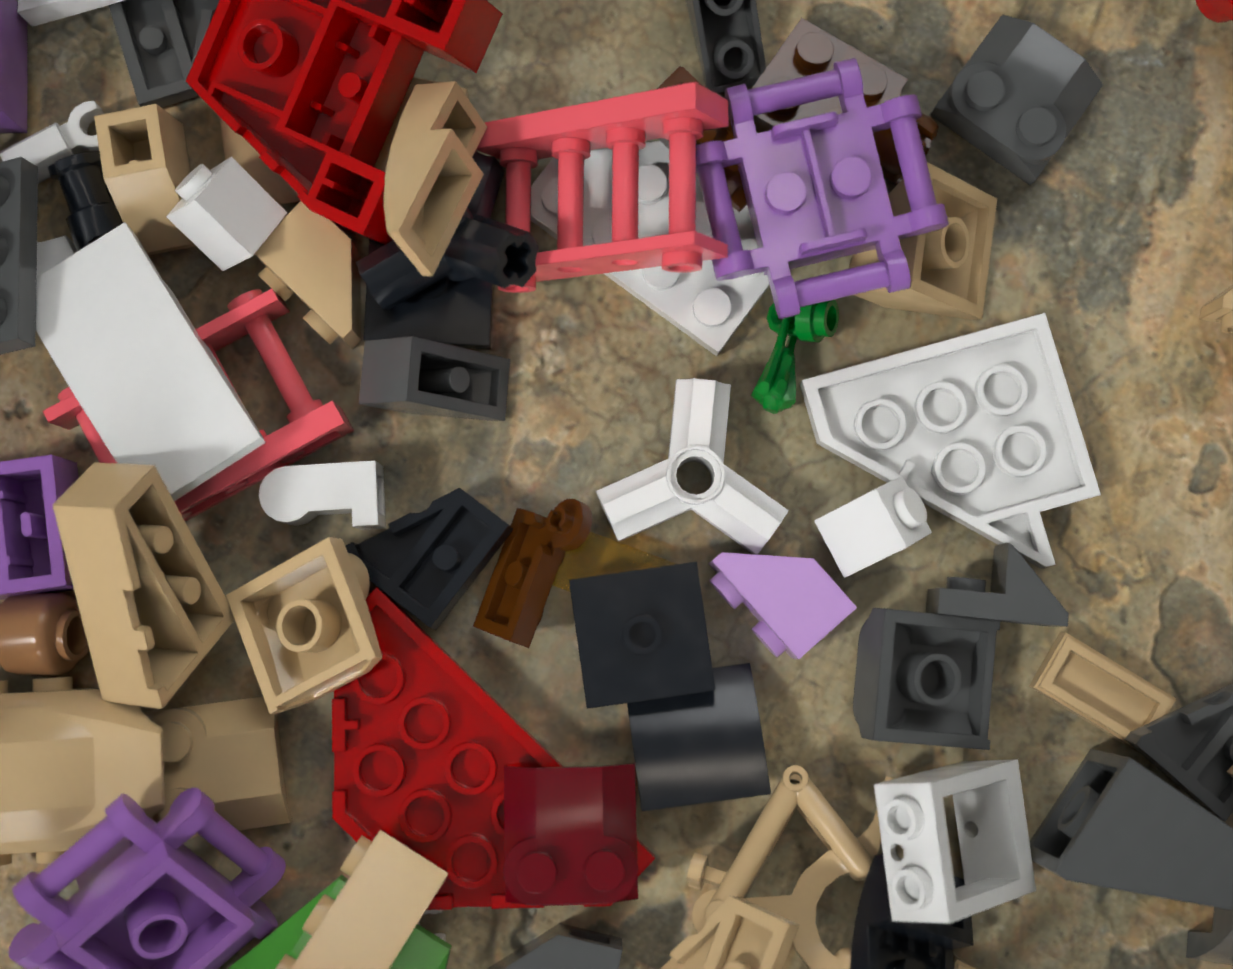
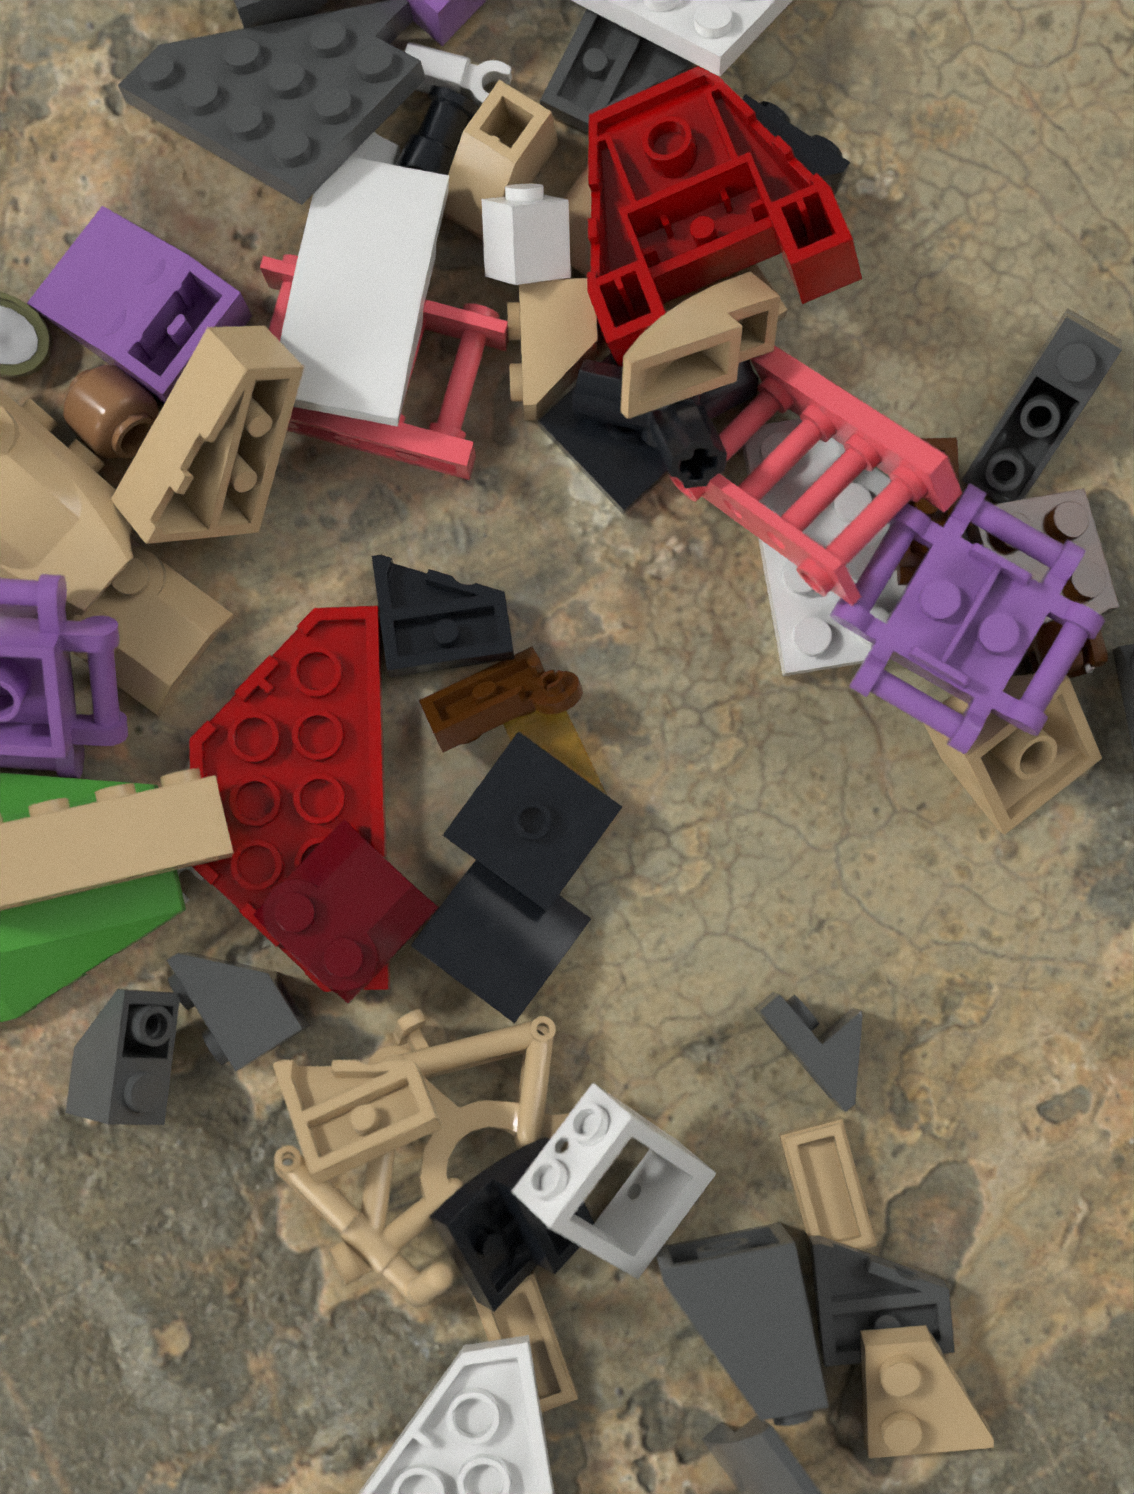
camera: 45 degrees right, 0 degrees up
(304, 491) = (394, 491): white leg -> none
(307, 625) = (303, 584): tan slope -> none
(433, 379) = (561, 497): dark grey slope -> none
(695, 436) = (710, 717): white piece -> none
(778, 380) = (871, 714): green piece -> none
(787, 596) = (664, 895): lavender slope -> none
(874, 526) = (775, 904): white brick -> none
(925, 678) = (706, 1050): dark grey slope -> none
(969, 425) = (912, 902): white wing -> none

